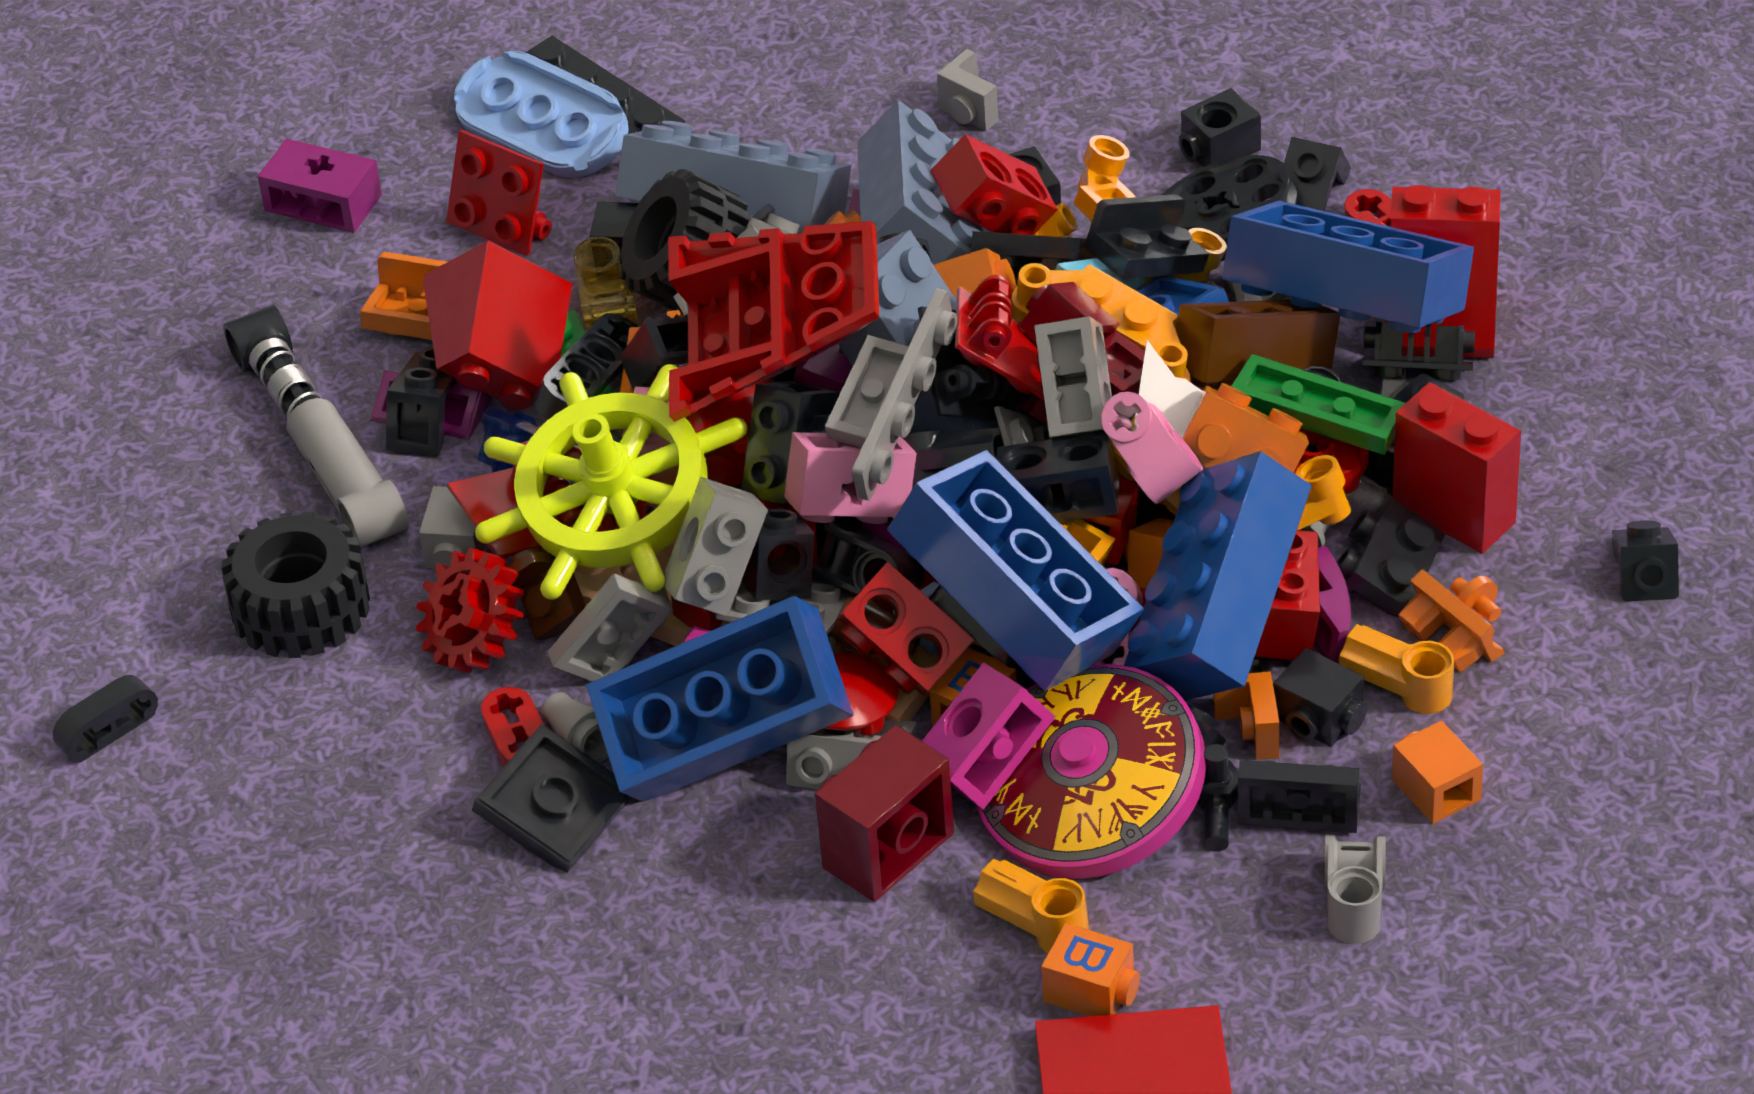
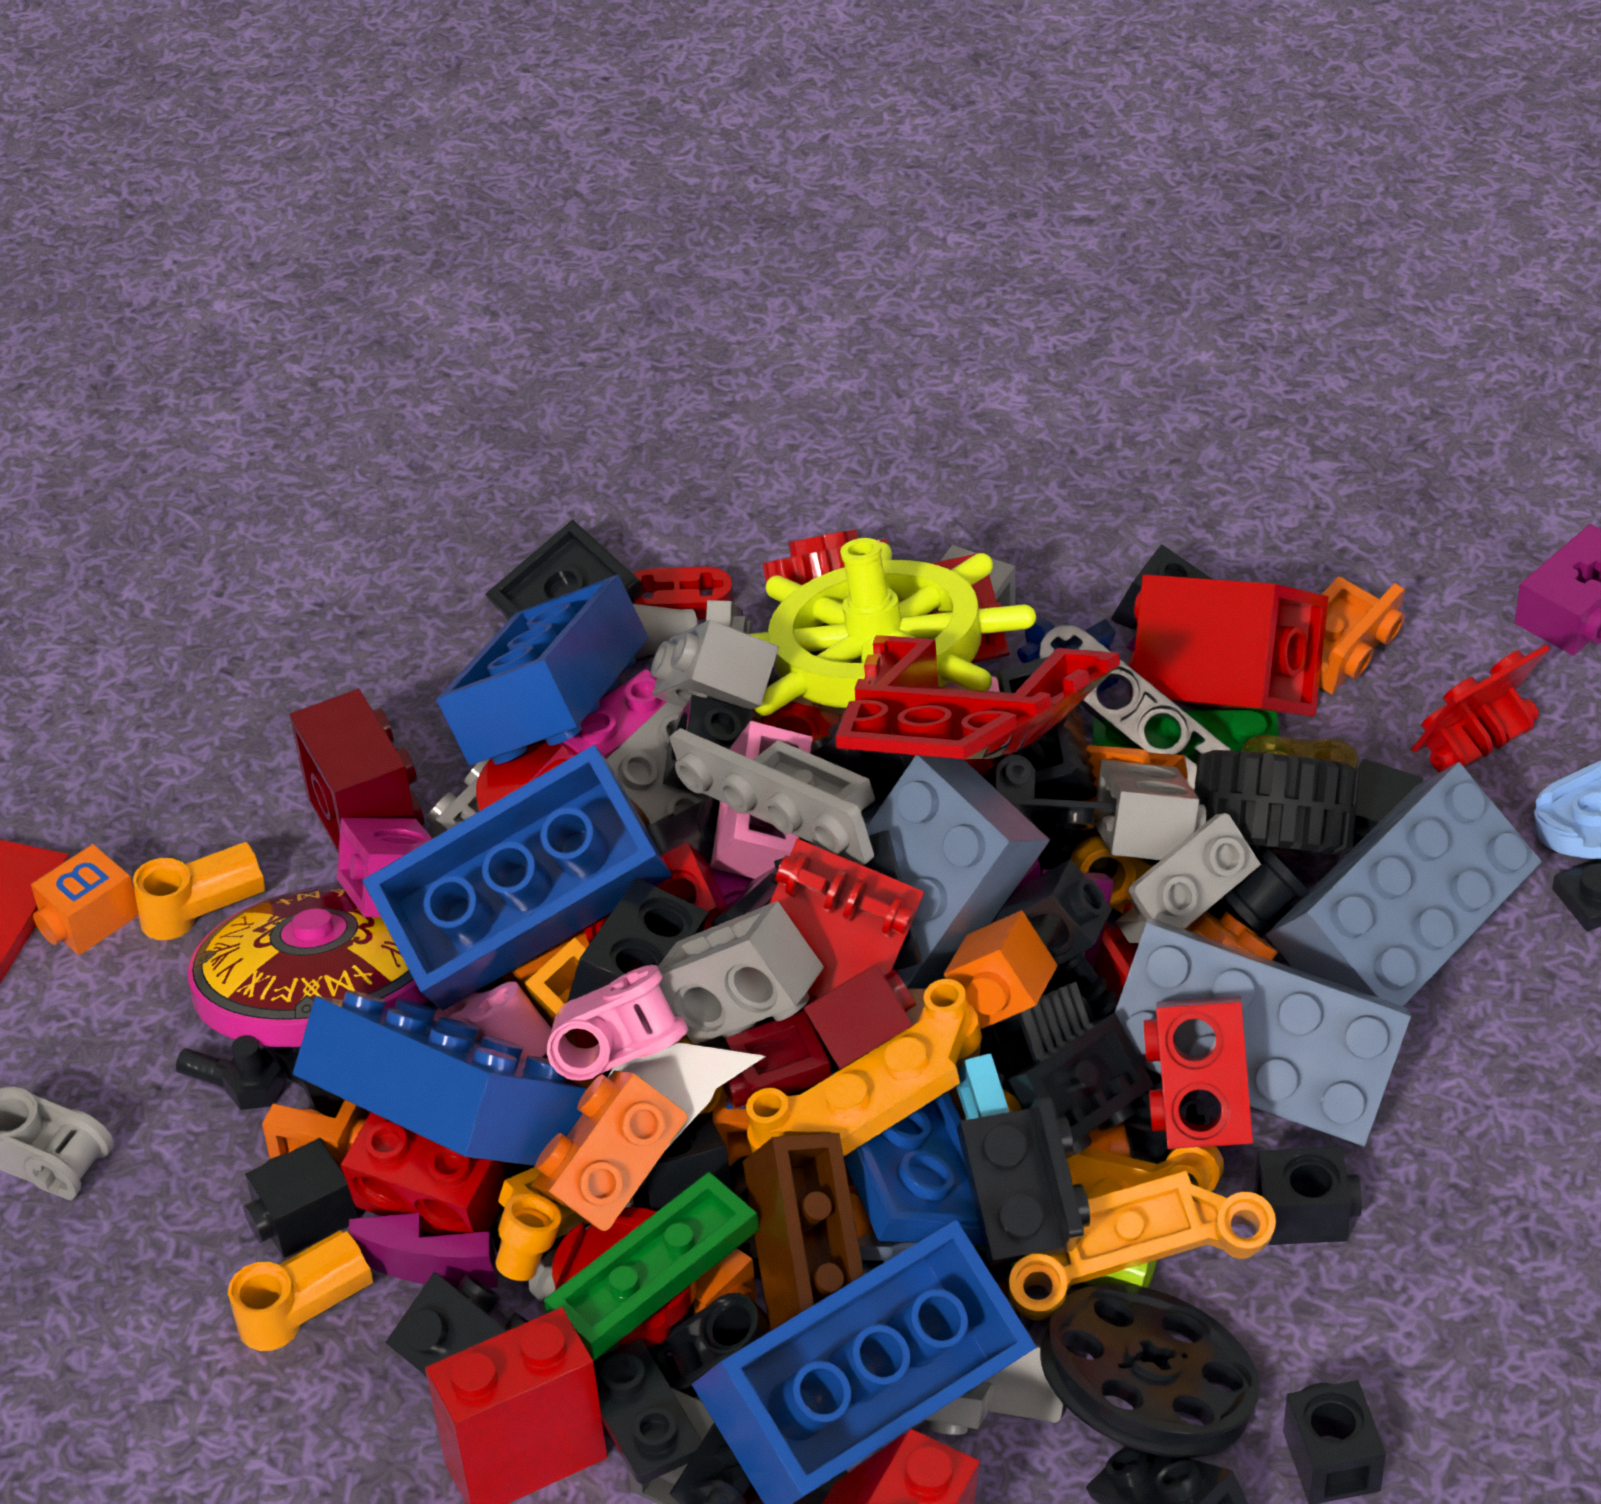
camera: 110 degrees right, 0 degrees up
(104, 717) = (857, 339): black beam -> none
(296, 584) = (946, 467): black tyre -> none
(359, 493) = (1047, 540): light grey piece -> none
(965, 94) = (1526, 1187): light grey bracket -> none
(1298, 796) = (176, 1129): black bracket -> none
(1437, 771) = (131, 1263): orange brick -> none
(1463, 614) = (334, 1370): orange hips -> none

